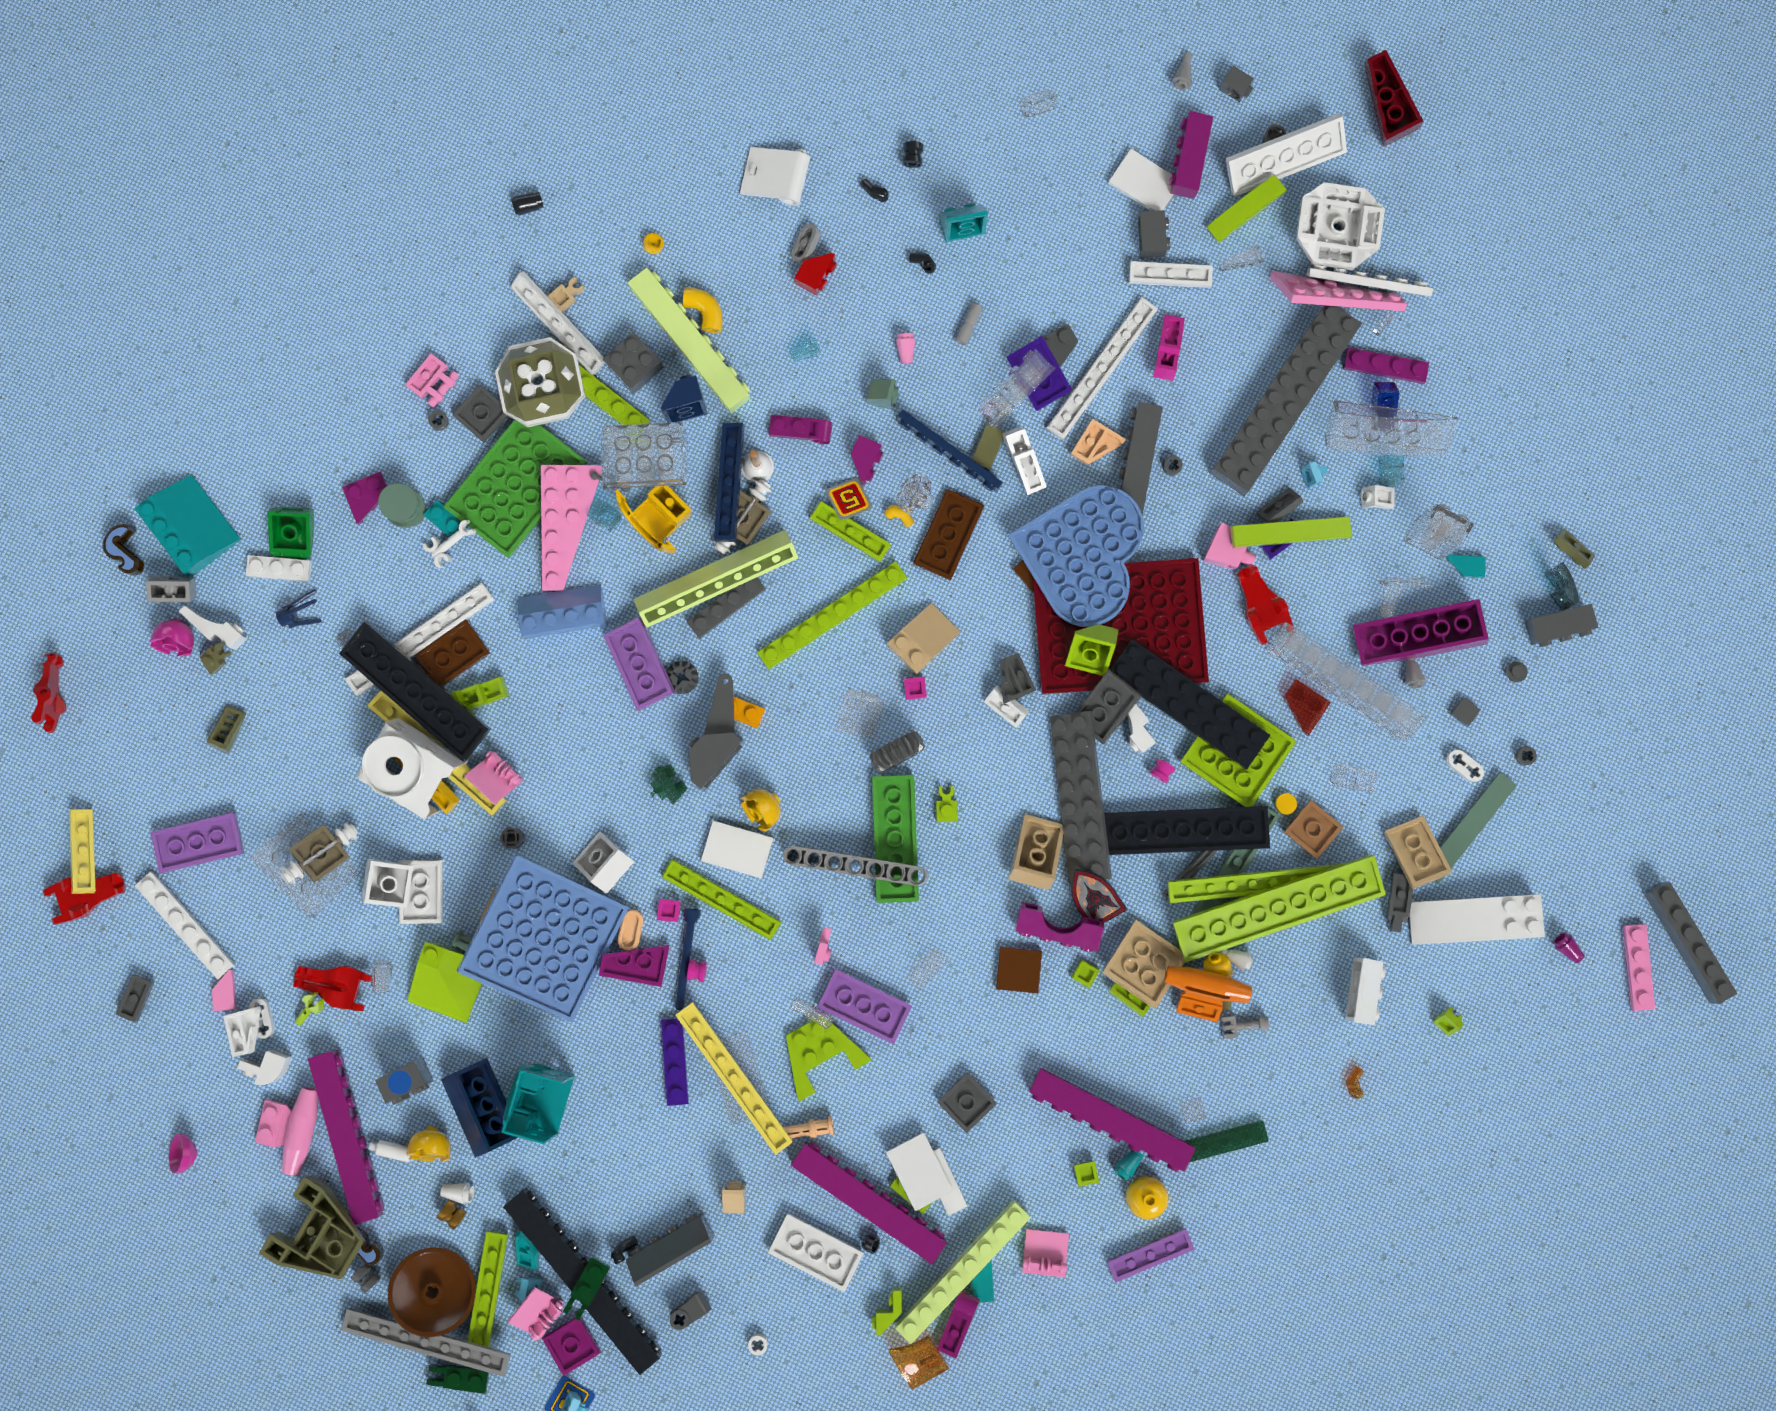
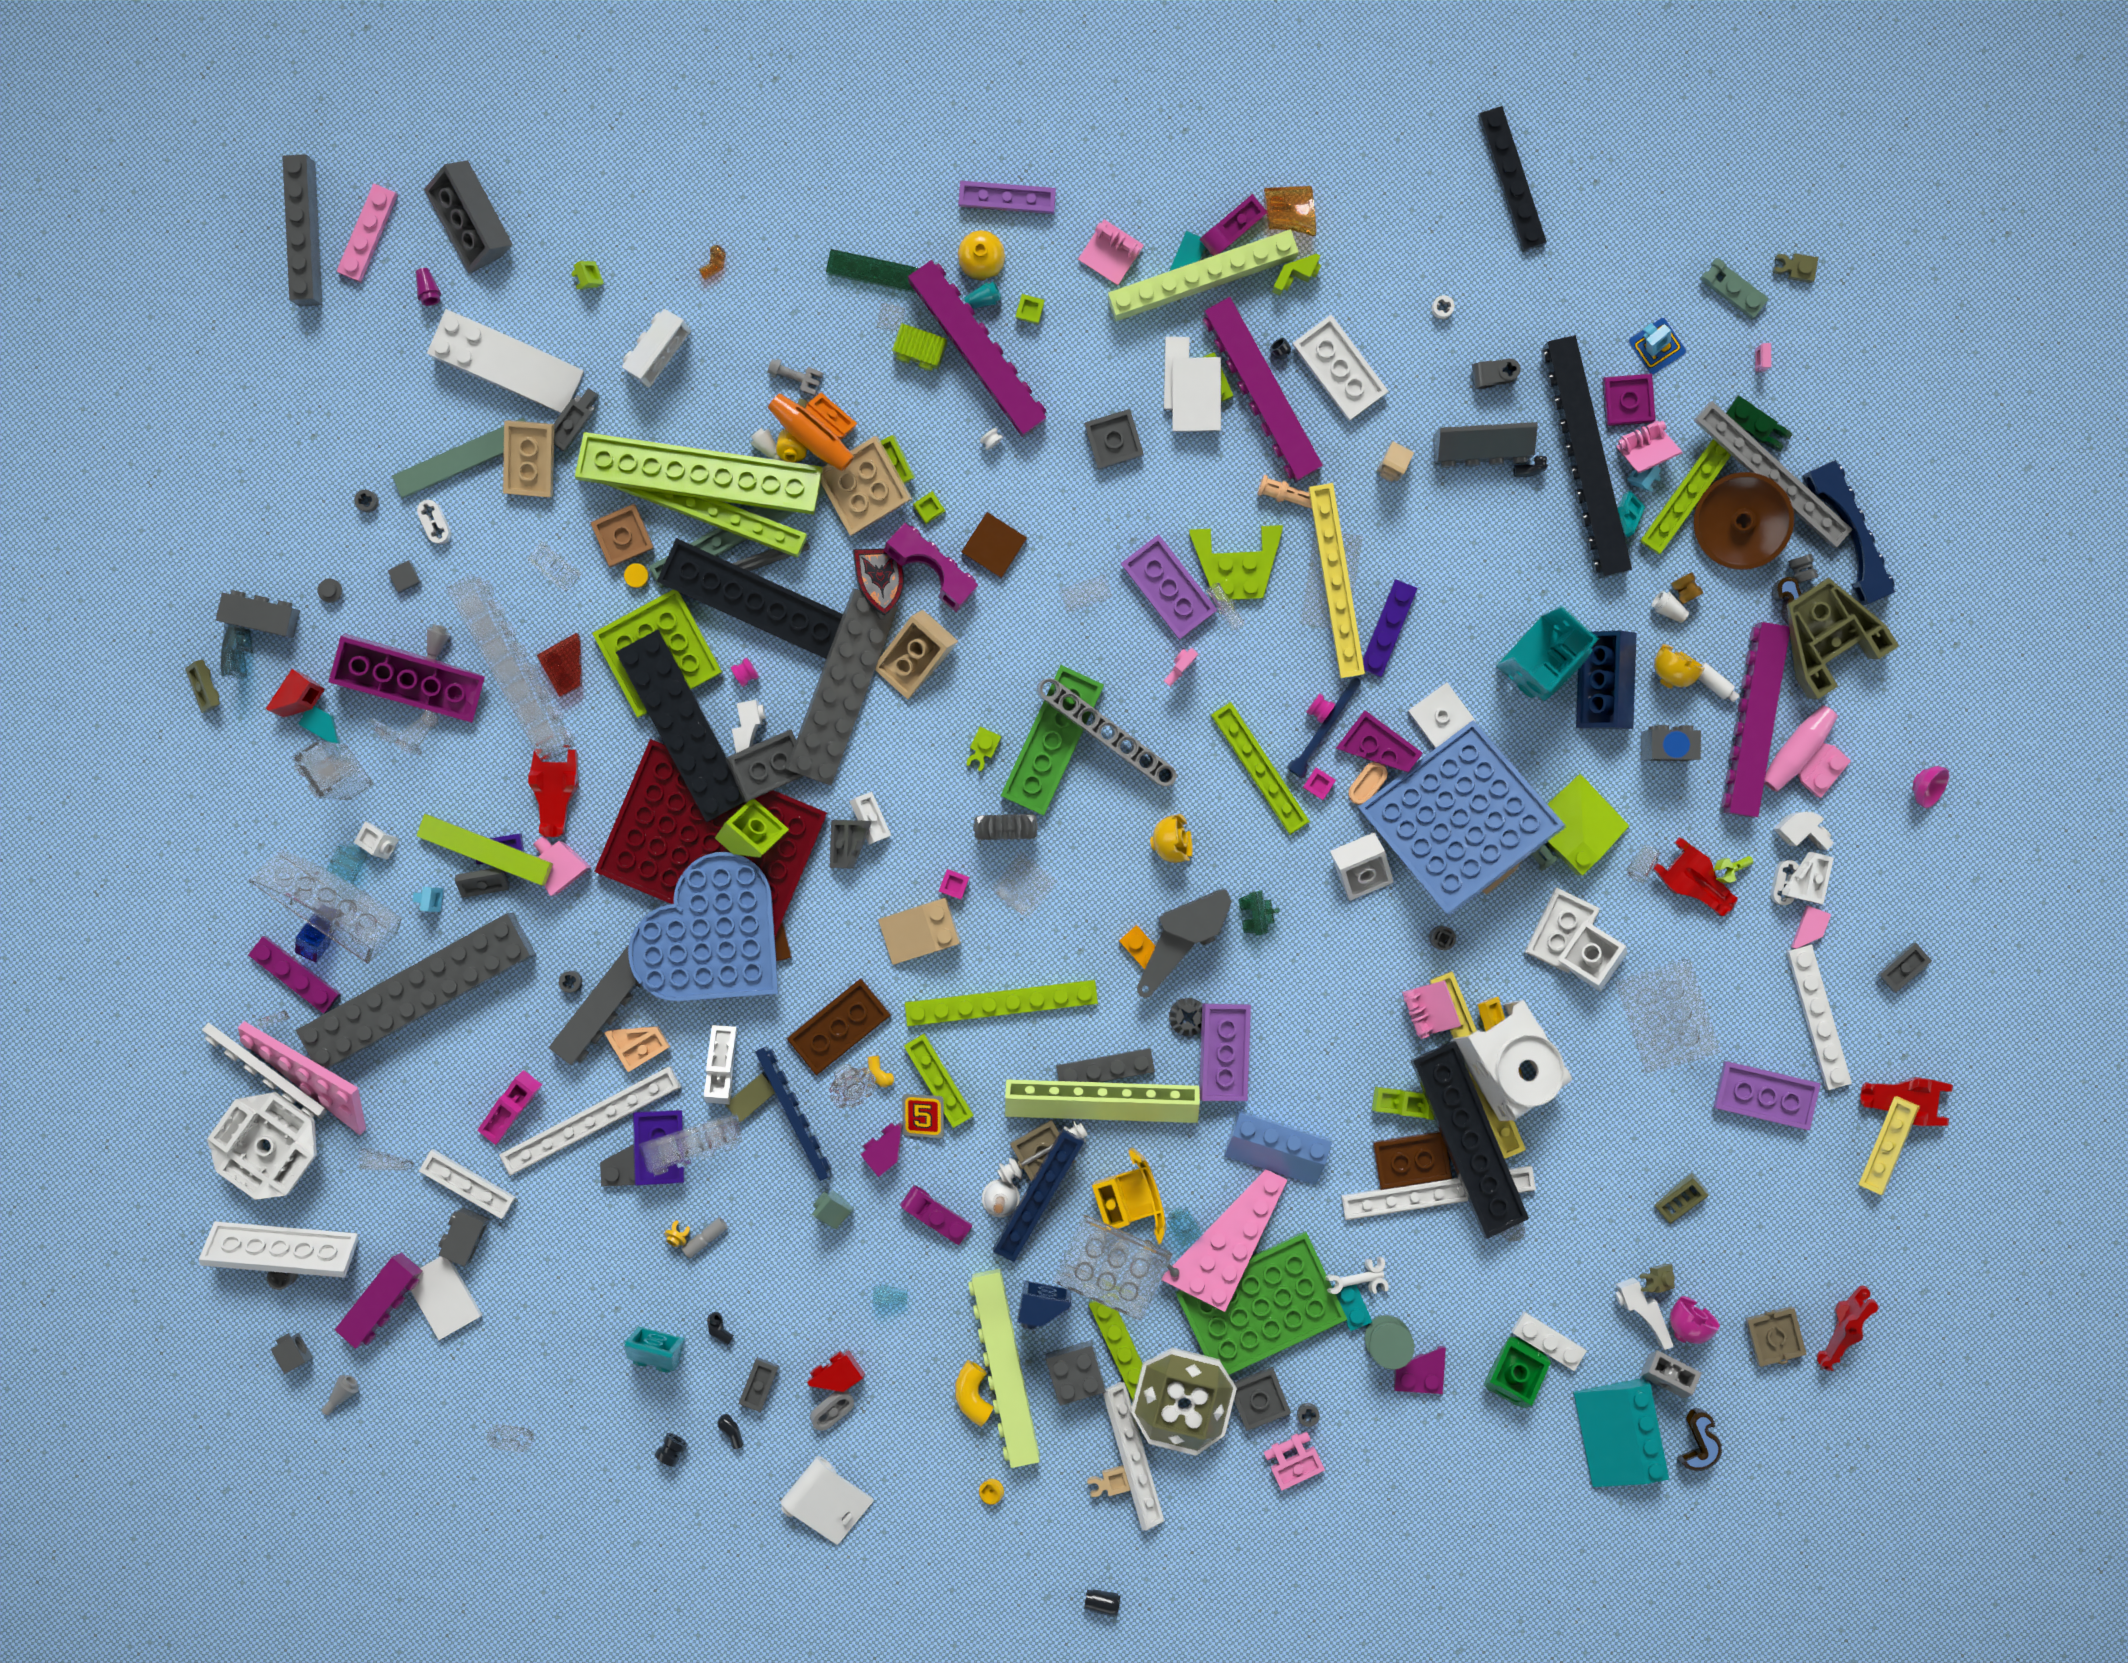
camera: 155 degrees left, 5 degrees up
(102, 659) = (1775, 1336): none -> dark tan plate
(288, 614) = (1561, 1286): dark blue plant -> none
(306, 1297) = (1871, 579): none -> dark blue arch
(319, 853) = (1647, 1020): dark tan plate -> none
(587, 1285) = (1584, 448): dark green hinge -> none
(599, 1013) = (1440, 715): none -> white plate
(737, 849) = (1218, 811): white tile -> none
(871, 235) = (758, 1384): none -> dark grey plate
(906, 345) = (782, 1246): bright pink cone -> none
(991, 312) = (674, 1237): none -> yellow plate
(1063, 1053) = (991, 439): none -> white bush
(1158, 1098) = (919, 347): none -> lime brick
(1247, 208) = (351, 1213): lime slope -> none
(1391, 100) = (138, 1252): dark red wedge -> none
(1499, 577) = (295, 695): none -> red slope
(1567, 1021) = (467, 215): none -> dark grey slope

